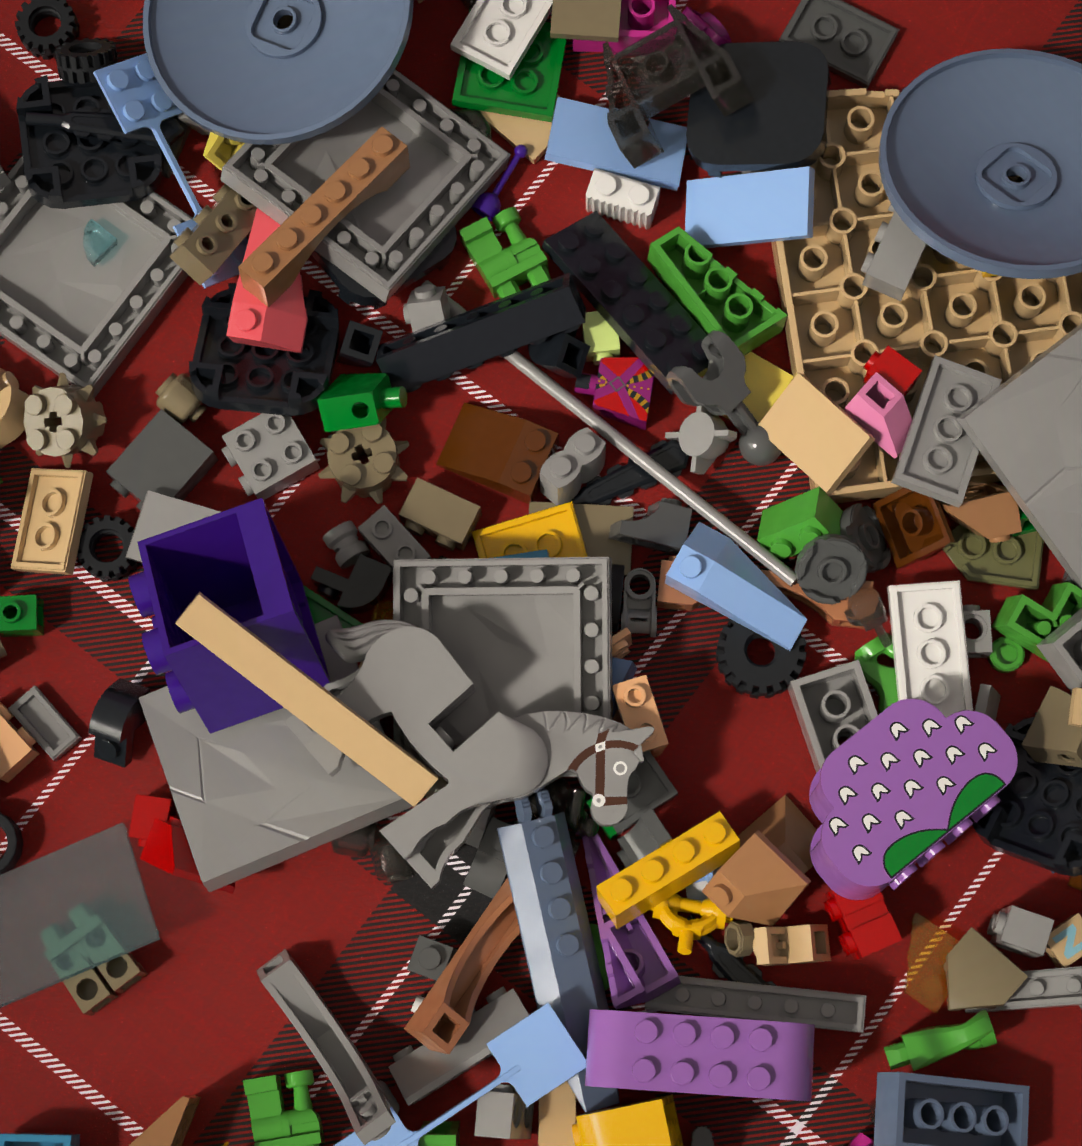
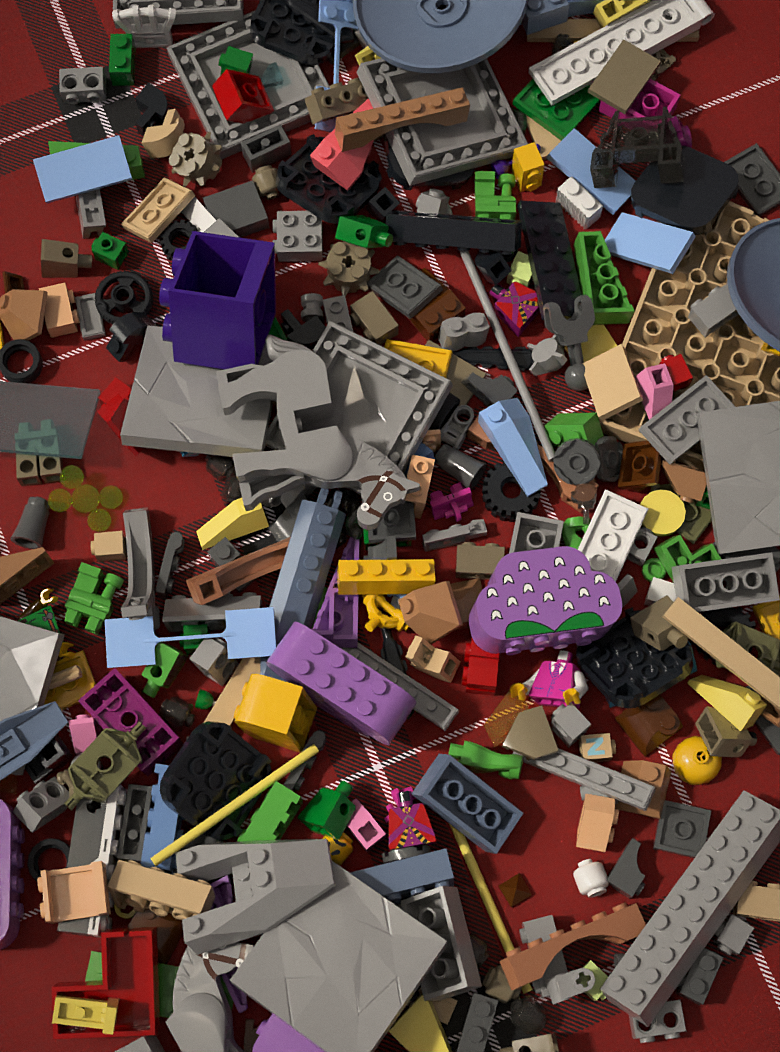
camera: 25 degrees right, 5 degrees down
(39, 254) = (236, 60): none -> green brick
(66, 645) = (125, 279): none -> black wheel
(77, 297) = (241, 96): none -> red slope
(115, 499) = (198, 215): none -> white sticker
(141, 1062) = (32, 524): none -> dark grey plant
(151, 351) = (266, 148): none -> dark grey brick
(193, 986) = (85, 498): none -> clear neon green piece
(265, 1034) = (109, 546): none -> tan brick
(306, 699) = (232, 358): tan tile -> none
(363, 1010) = (170, 564): none -> dark grey hinge
(411, 912) = (232, 523): none -> light yellow slope
(455, 447) = (404, 287): none -> dark grey tile
(455, 1092) = (188, 630): none -> green brick
(527, 187) = (527, 167): none -> yellow brick
(673, 656) = (460, 466): none -> dark grey plant
(694, 716) = (452, 504): none -> dark pink hips
(721, 754) = (453, 535): none -> light grey hinge
(739, 938) = (404, 640): dark tan tile -> none
(774, 773) = (477, 561): none -> dark tan brick
(970, 886) = (554, 683): none -> torso
(979, 567) = (664, 512): none -> light yellow tile
(1033, 683) = (659, 589): none -> white brick

